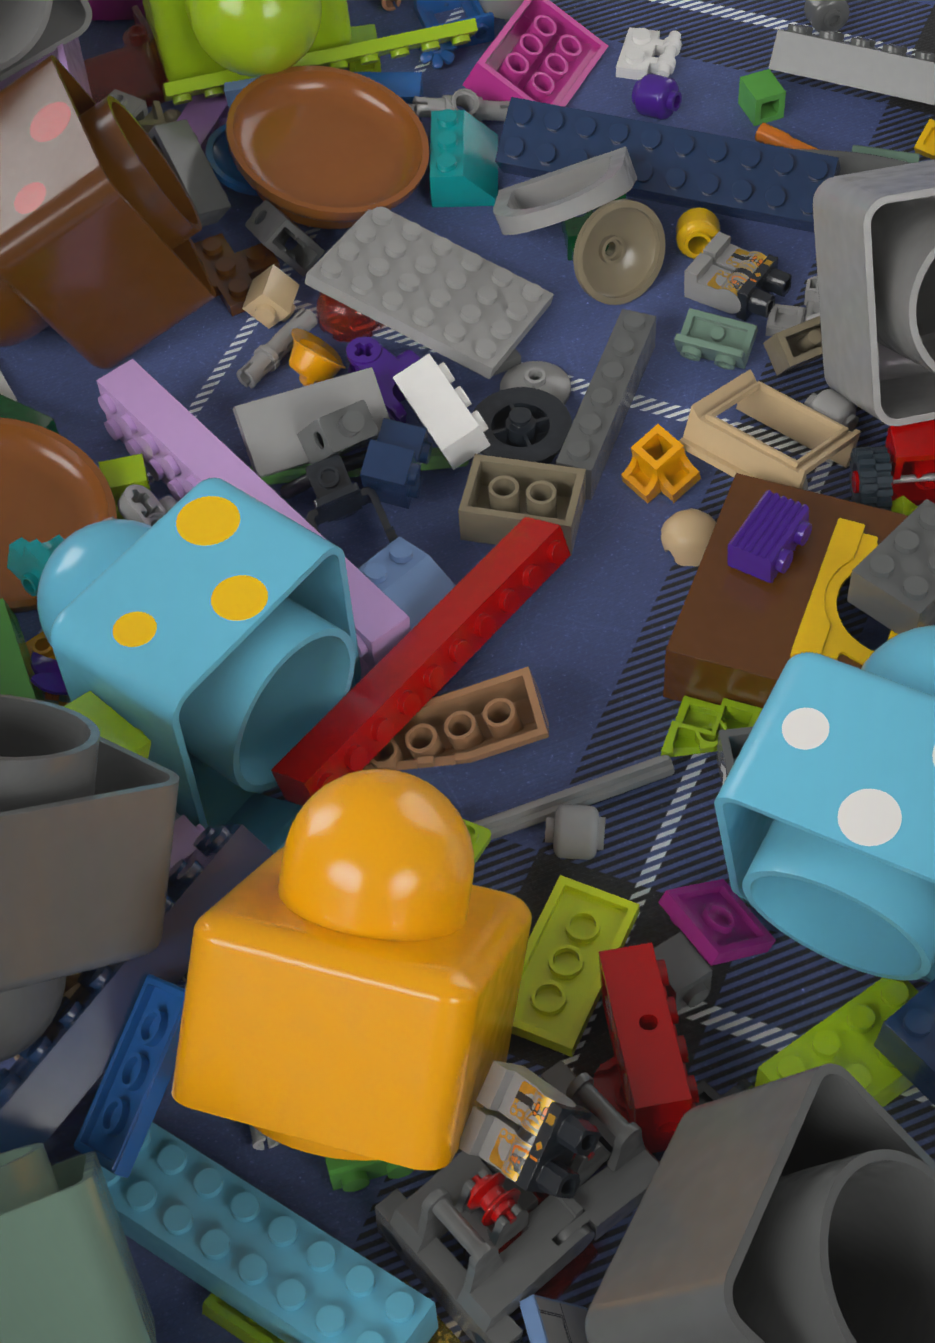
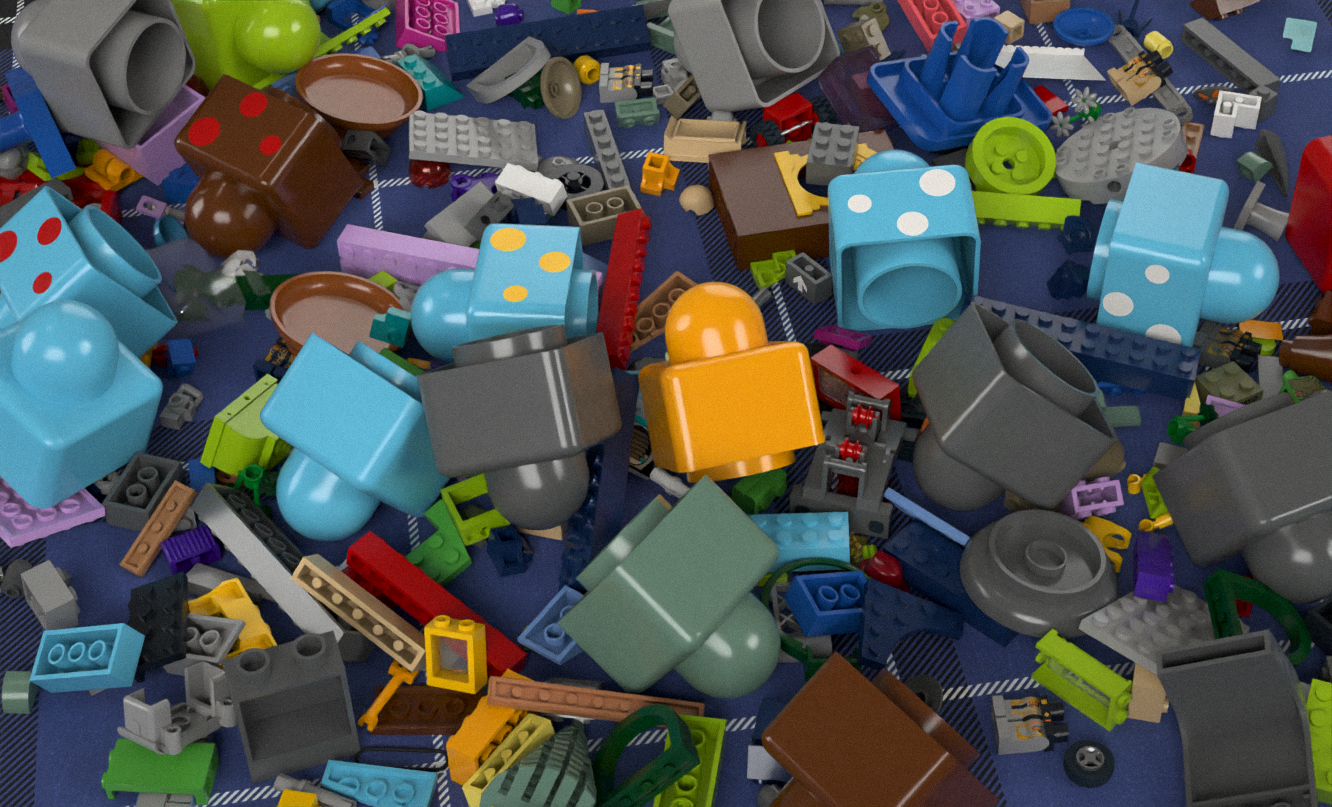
camera: 35 degrees left, 10 degrees down
(135, 1078) = (645, 471): blue tile -> none
(268, 356) = (404, 206): light grey pin -> none
(271, 297) = (383, 178): tan brick -> none
(313, 358) = (434, 198): light orange piece -> none
(529, 1130) = (851, 414): hips -> none
(769, 537) = (752, 169): dark purple brick -> none

